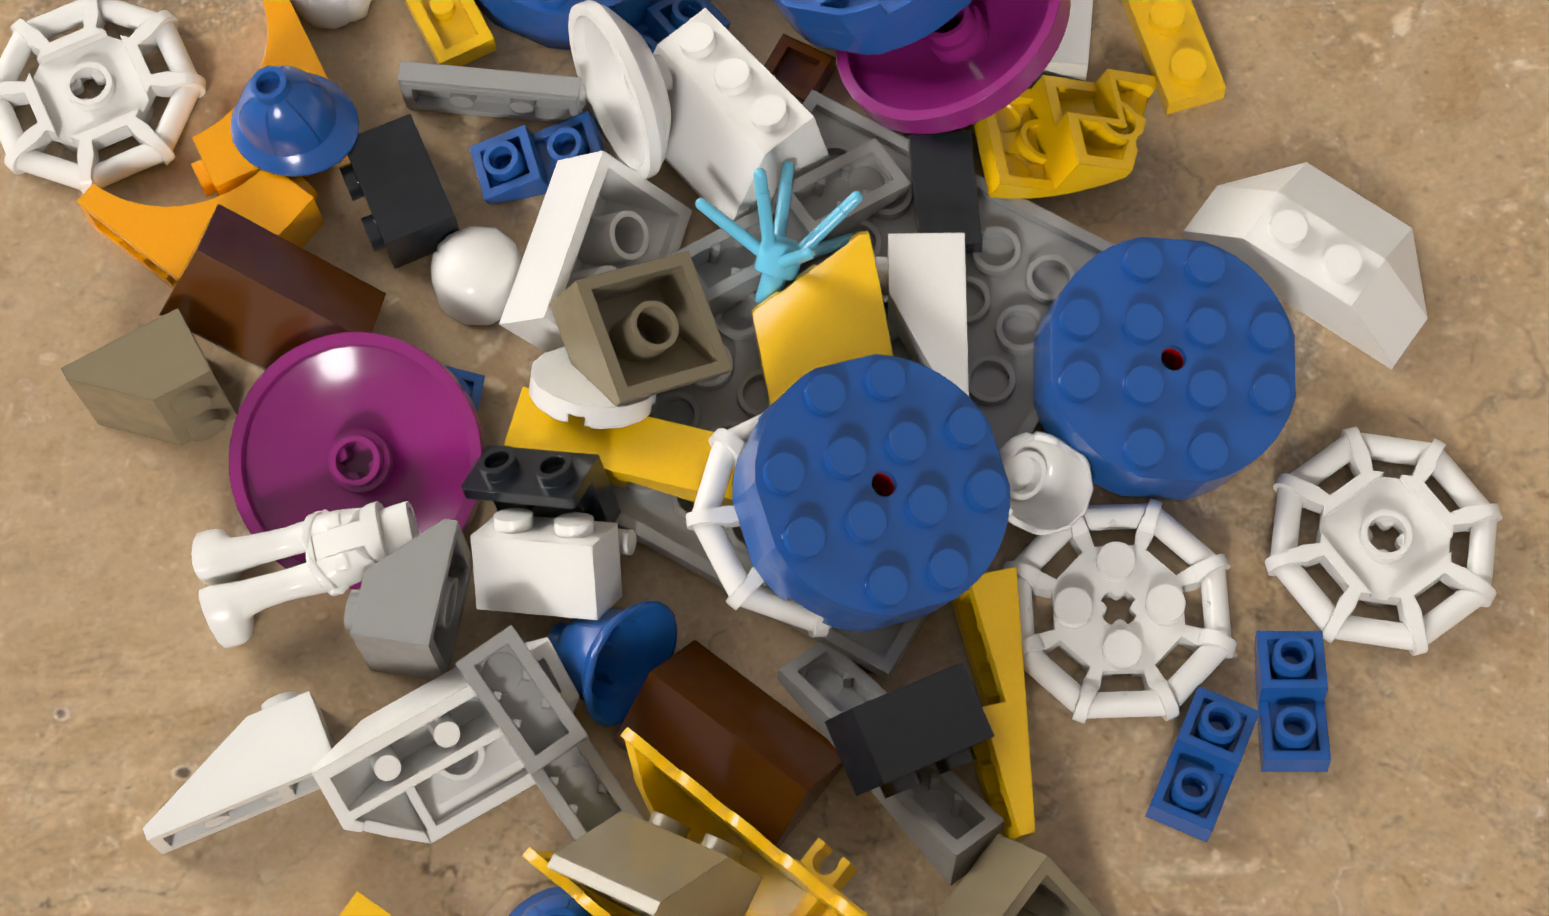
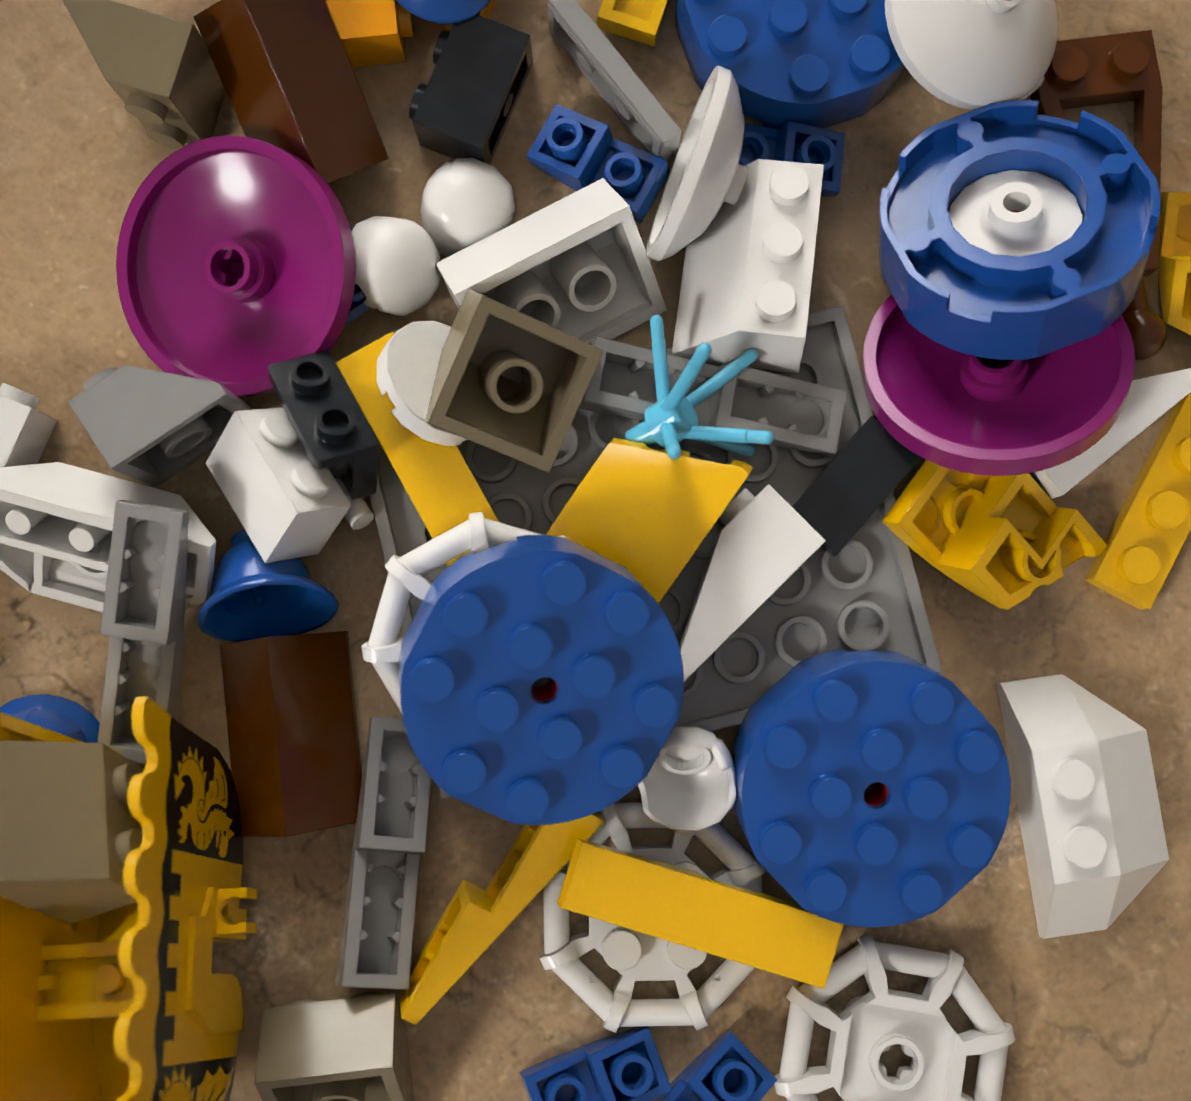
camera: 40 degrees right, 15 degrees up
(337, 552) = (146, 325): white piece -> none
(473, 350) = (395, 264): none -> white hair
(800, 67) = (849, 278): reddish brown tile -> none
(910, 729) = (399, 869): black brick -> none
(1145, 557) = (699, 912): none -> yellow slope

